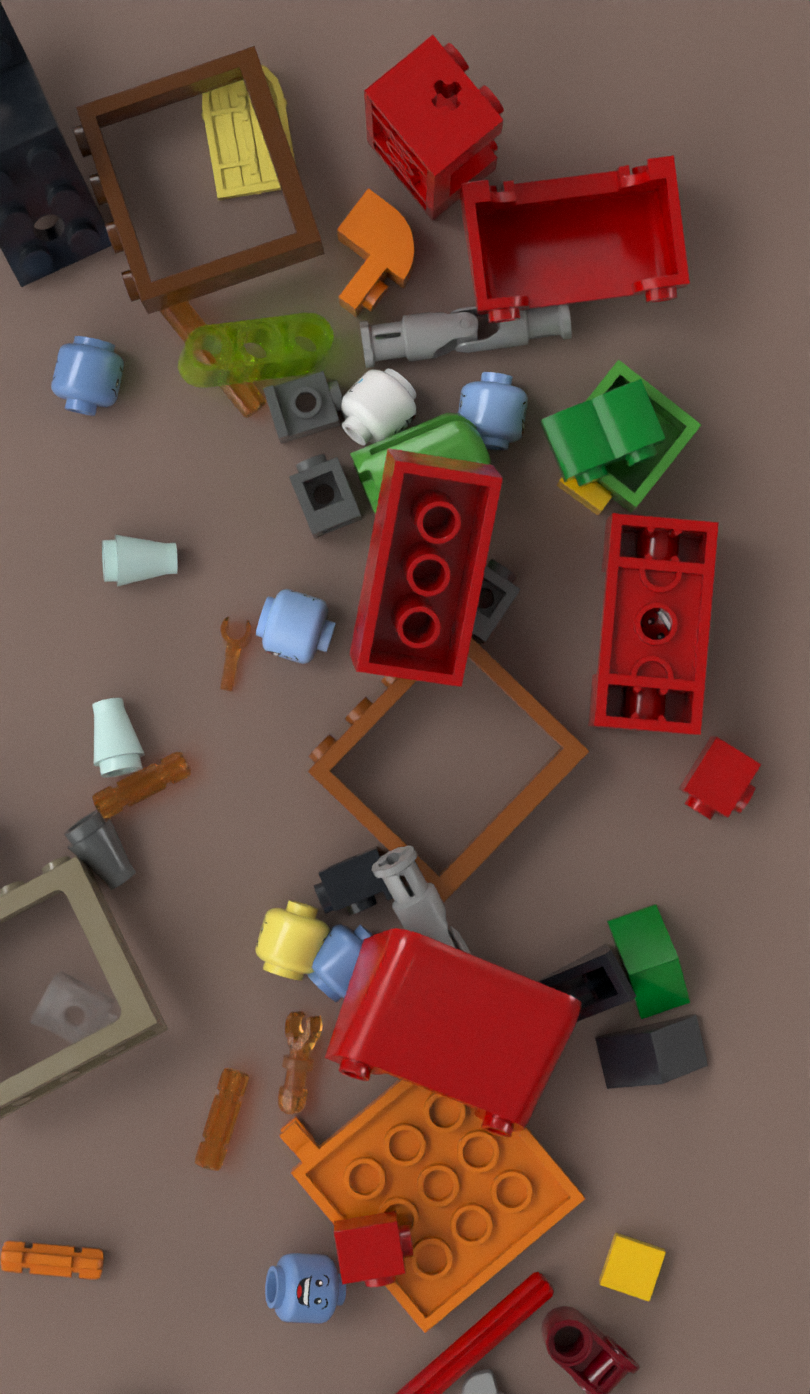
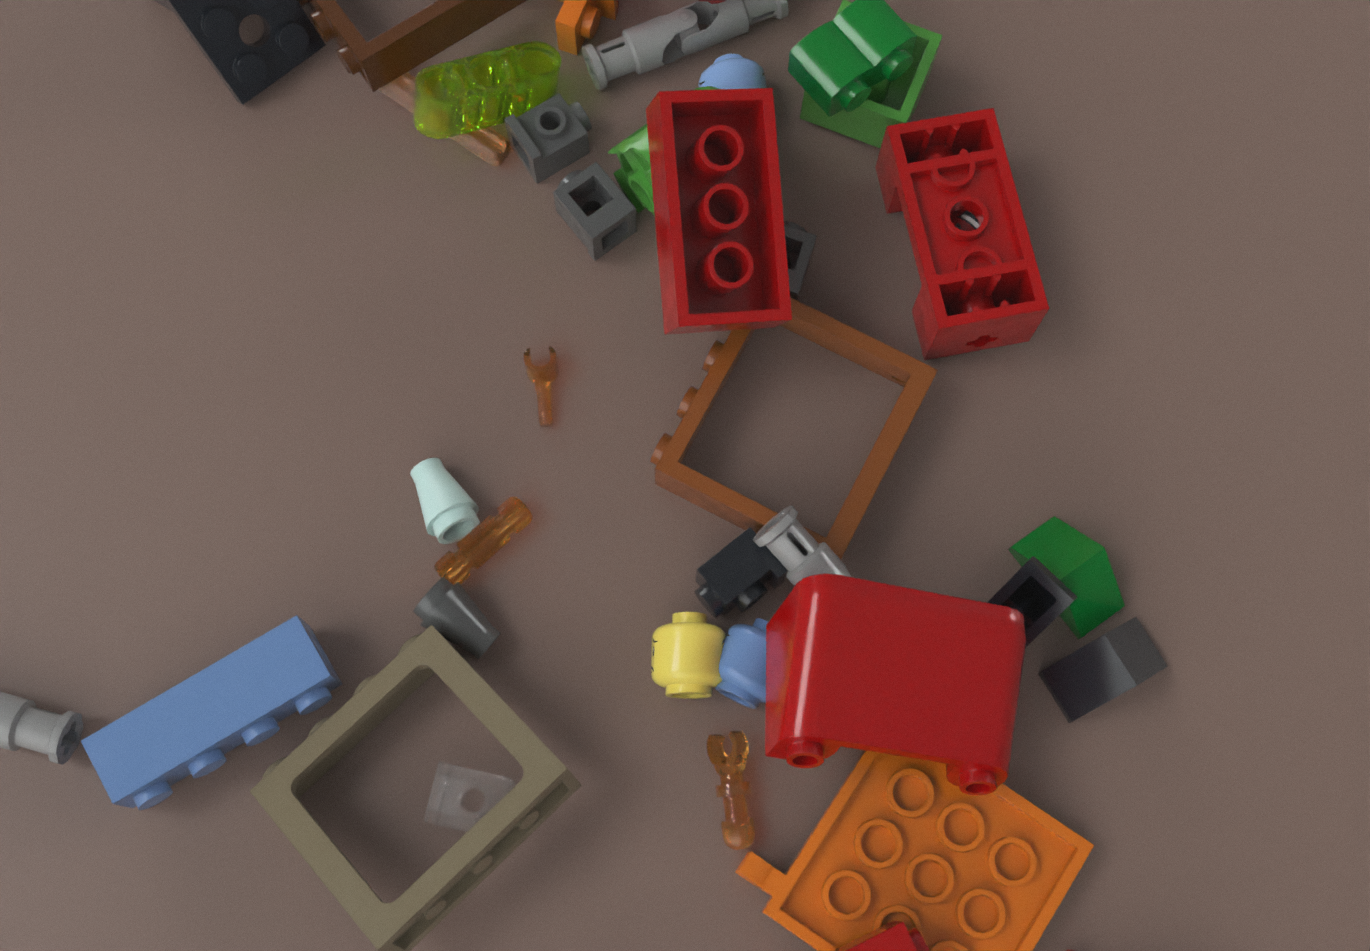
camera: 20 degrees left, 15 degrees down
(87, 375) = (327, 161): medium blue head -> none
(137, 559) = (419, 320): light aqua cone -> none
(221, 1119) = (667, 878): clear orange axle -> none
(295, 626) = (599, 339): light blue head -> none
(378, 406) = (617, 111): white head -> none
(591, 495) = (846, 139): yellow tile -> none
(632, 1266) = (1169, 911): yellow tile -> none
(719, 780) = (1075, 369): red brick -> none

